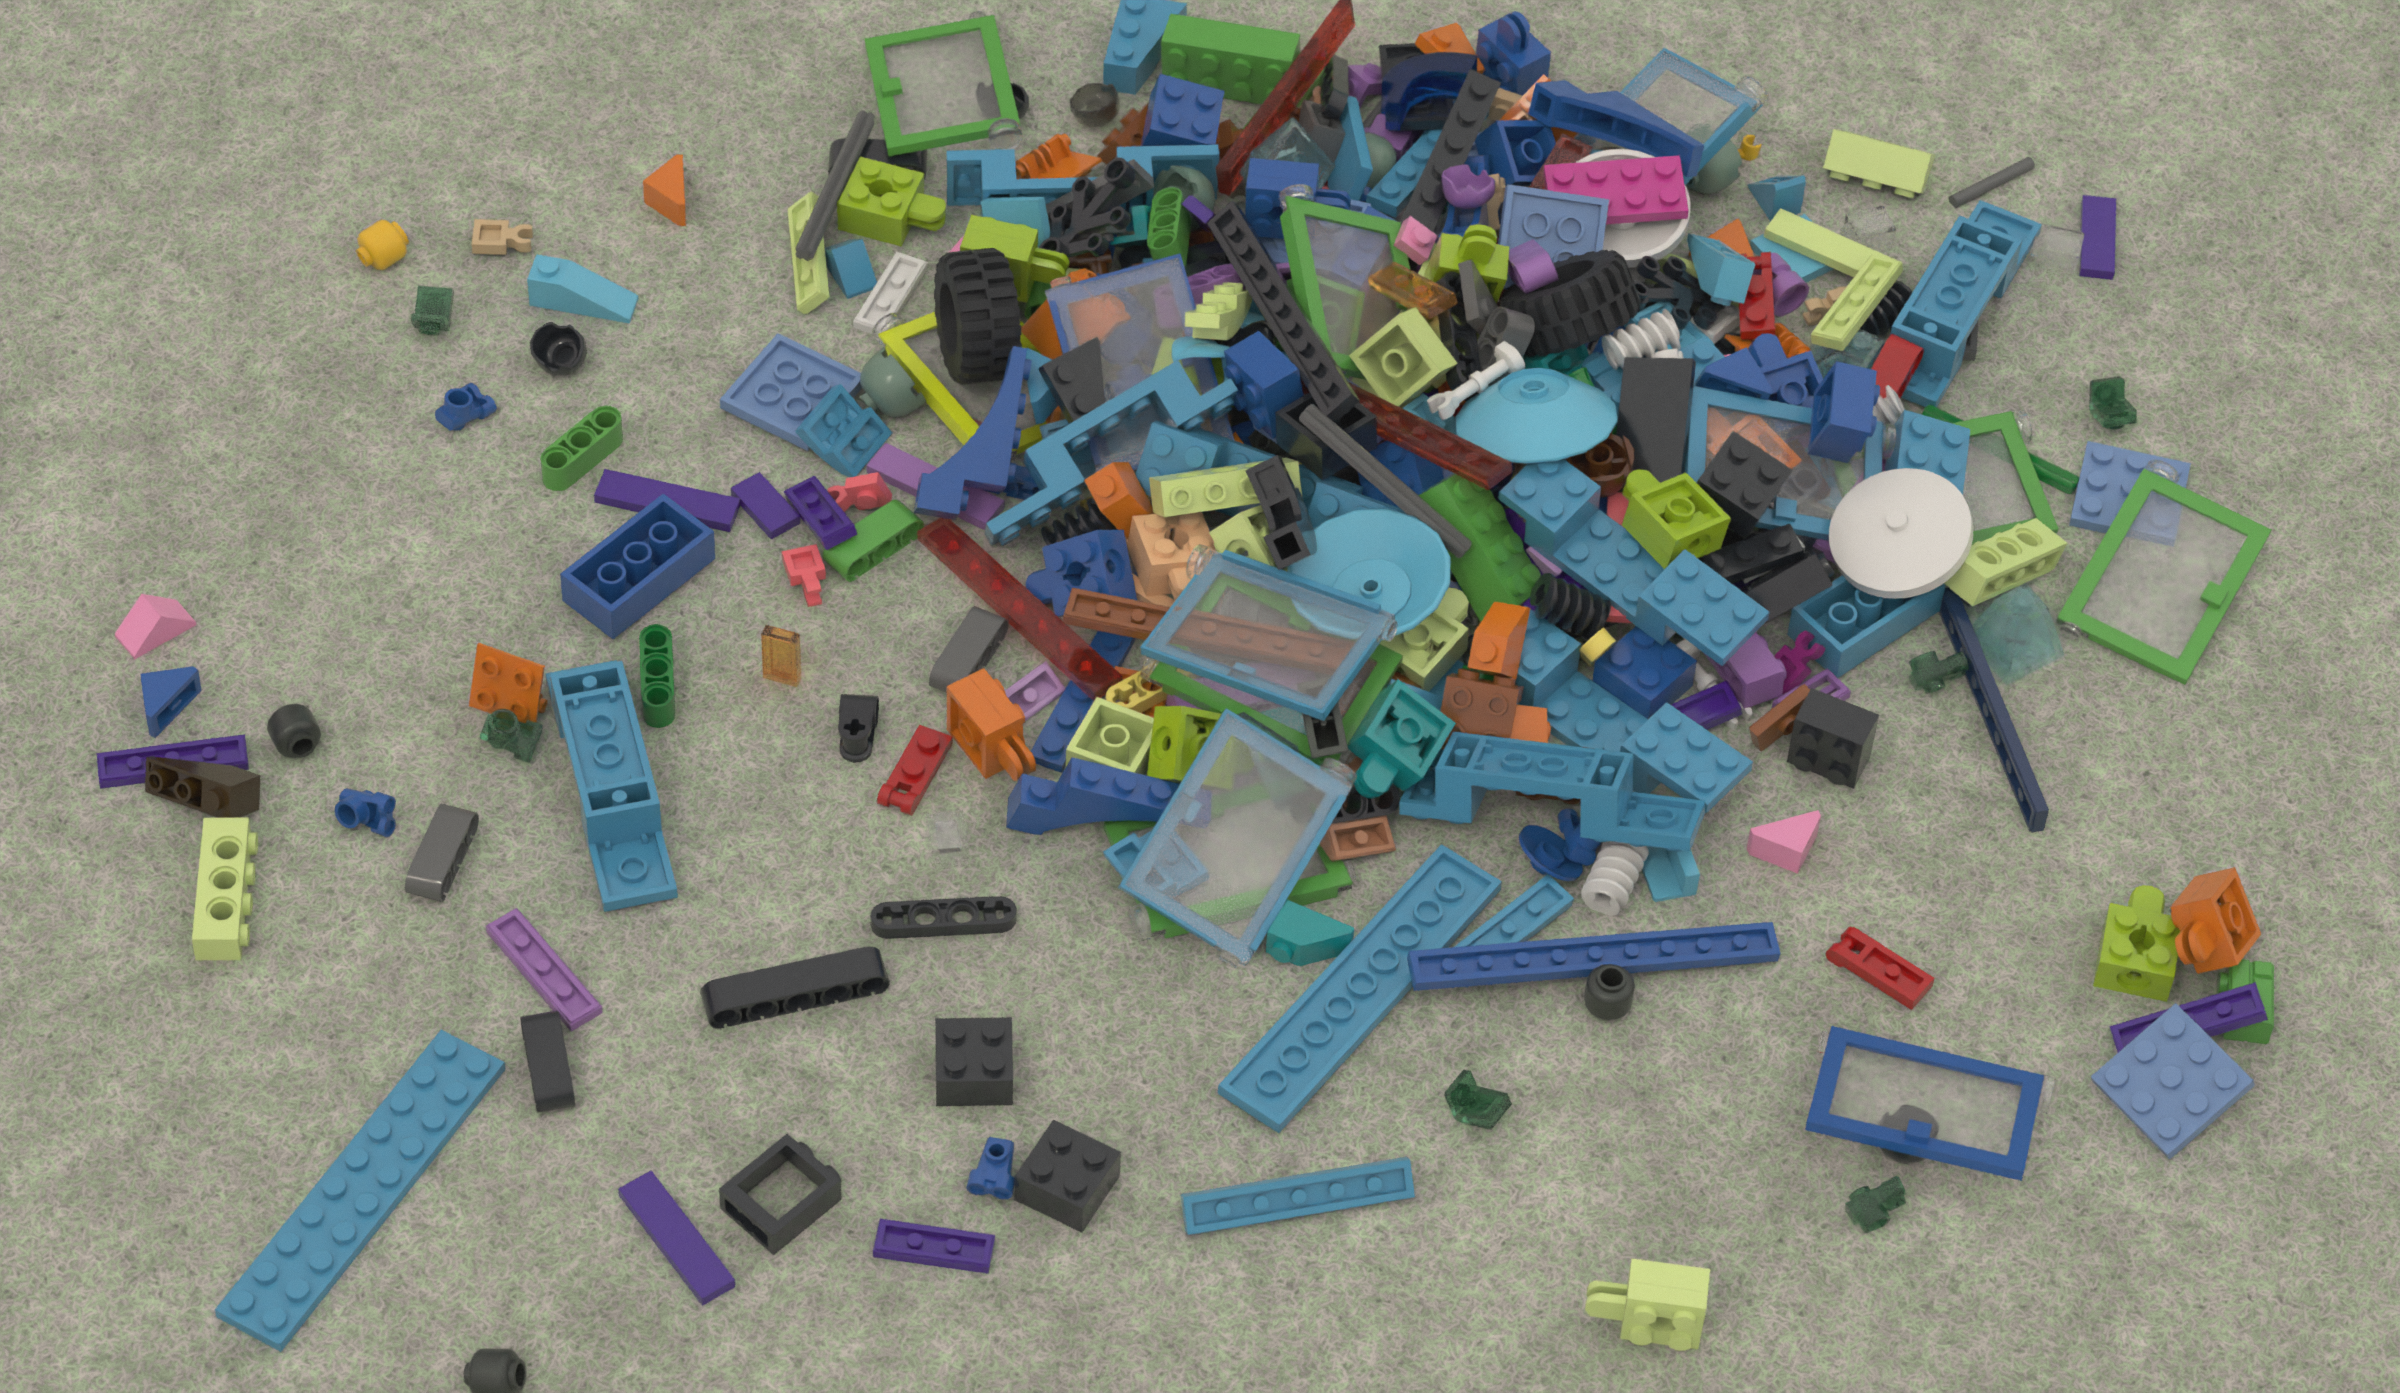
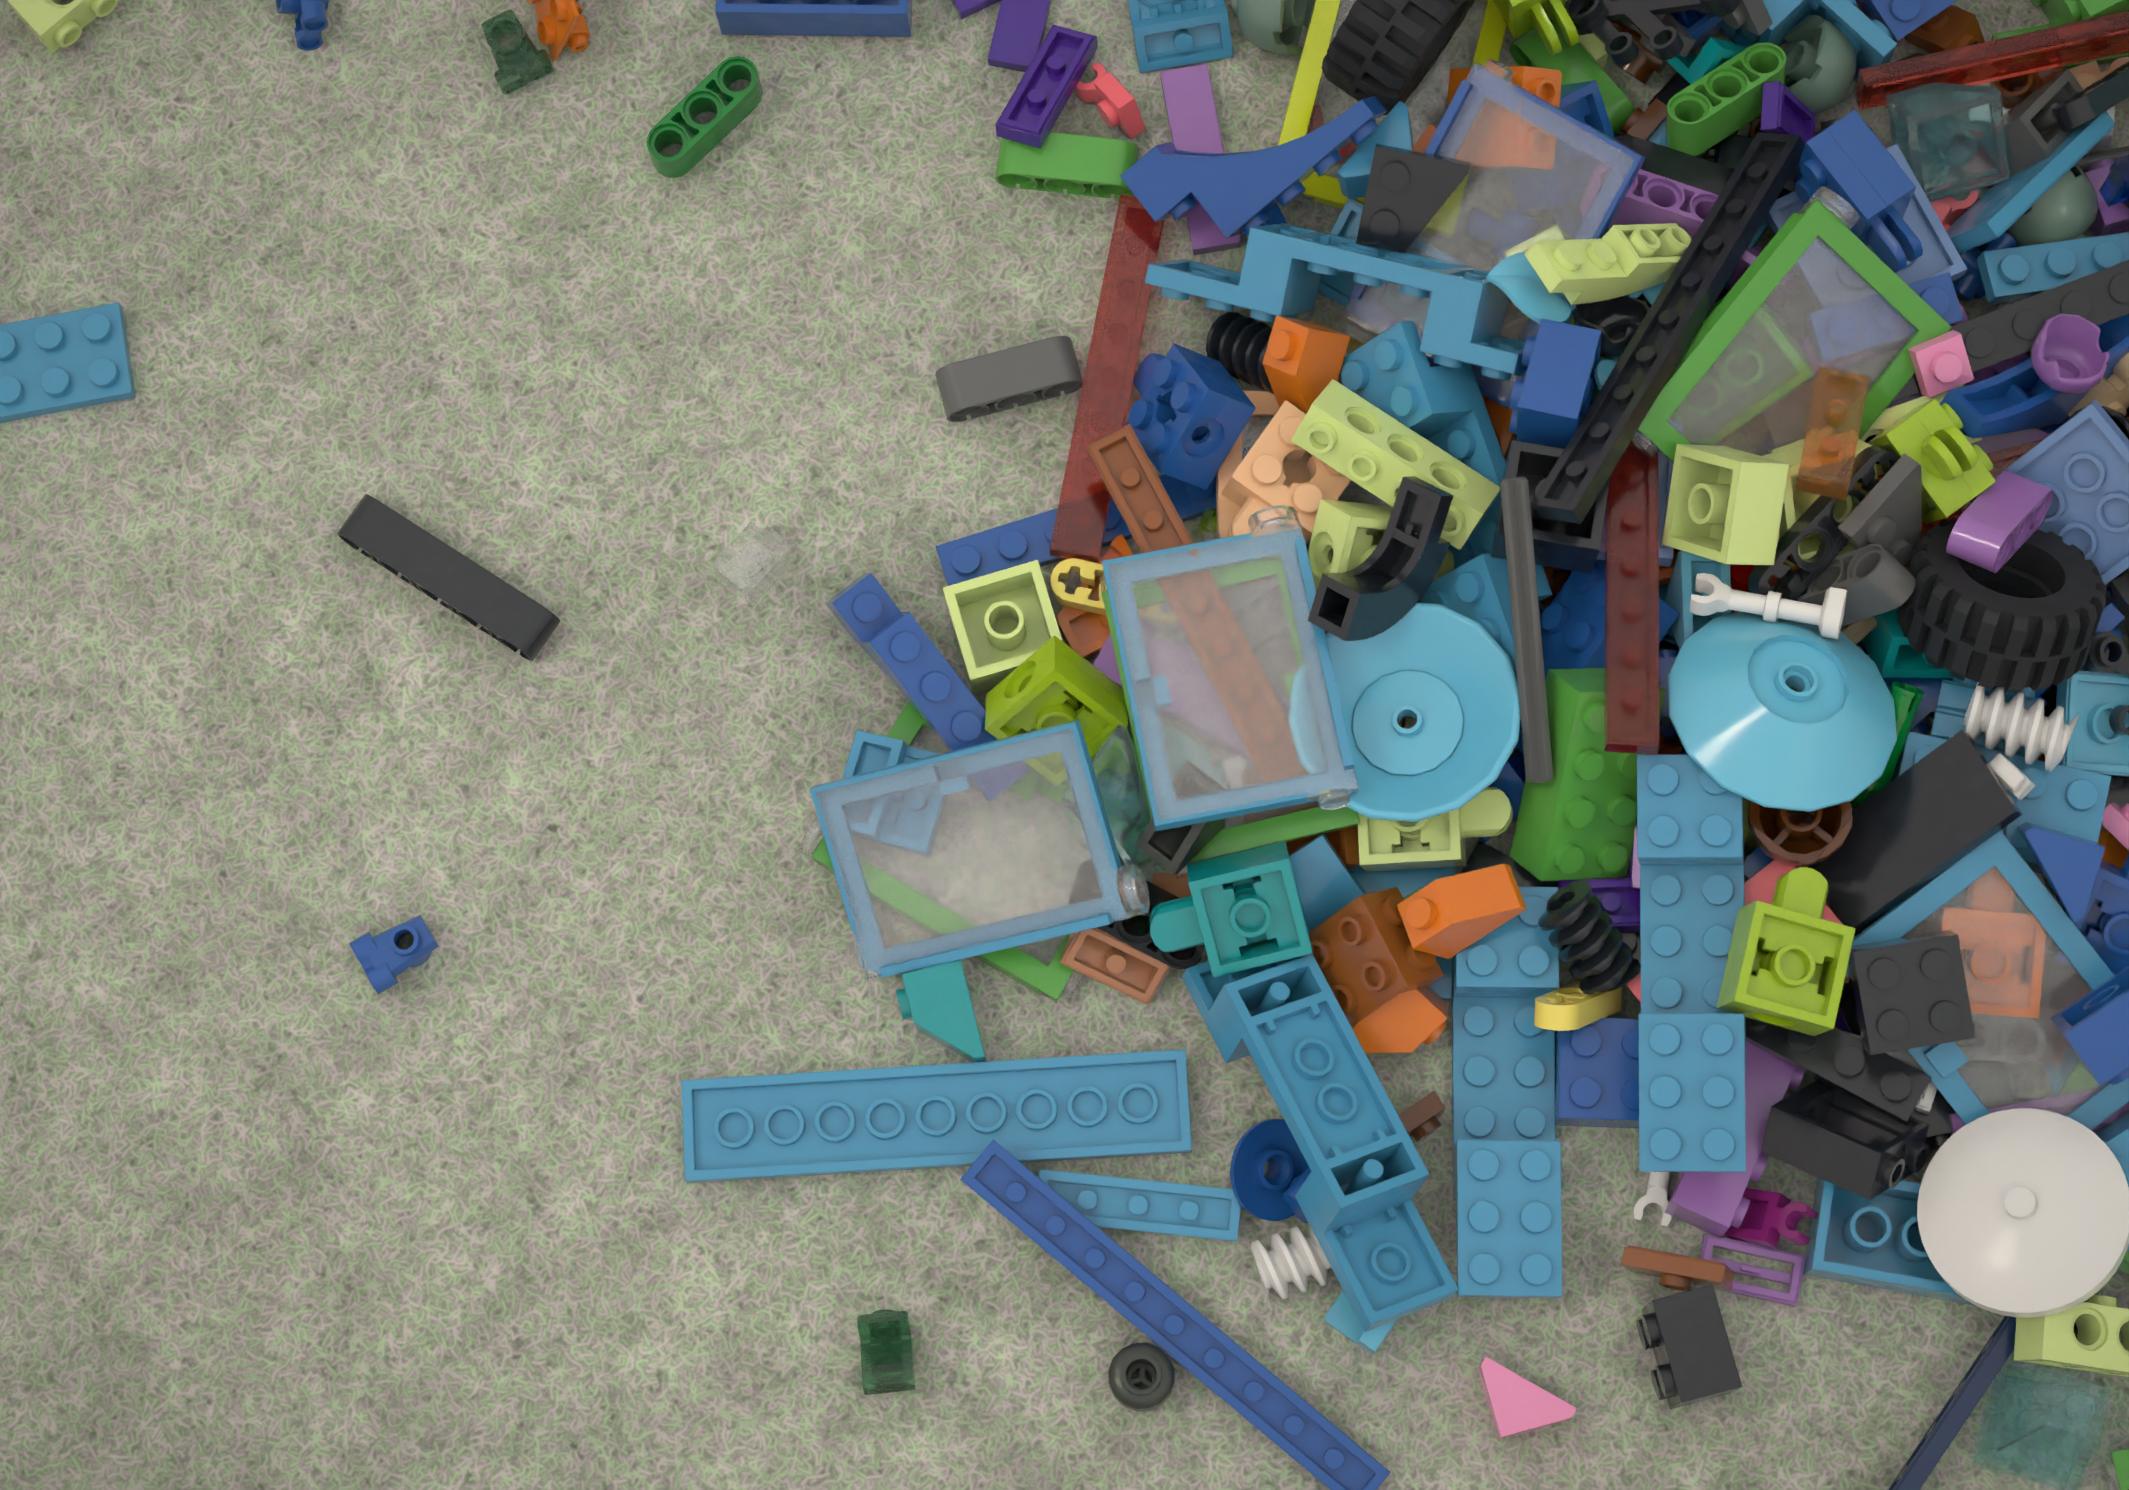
camera: 60 degrees right, 25 degrees up
(440, 852) = (318, 114): dark grey beam -> none
(544, 969) = (274, 328): medium lavender tile -> none
(547, 1061) = (162, 428): black beam -> none
(613, 784) = (525, 182): dark azure bracket -> none
(676, 1237) = (74, 723): dark purple tile -> none
(759, 1223) = (147, 768): black window -> none
(781, 655) = (821, 212): clear orange tile -> none
(805, 568) = (969, 132): coral plate -> none
(857, 726) = (825, 348): black piece -> none
(915, 769) = (820, 455): red plate -> none
(934, 1246) = (268, 967): dark purple tile -> none
(943, 911) = (665, 637): black beam -> none
(974, 1061) = (502, 822): black brick -> none
(988, 726) = (914, 486): orange brick -> none
(1035, 690) = (1012, 478): lavender slope -> none
(1067, 1176) = (443, 1028): black brick -> none
(1297, 1195) = (618, 1268): dark azure plate -> none
(1711, 706) = (1614, 1172): dark purple tile -> none
(1930, 673) = (1900, 1375): clear green plate -> none

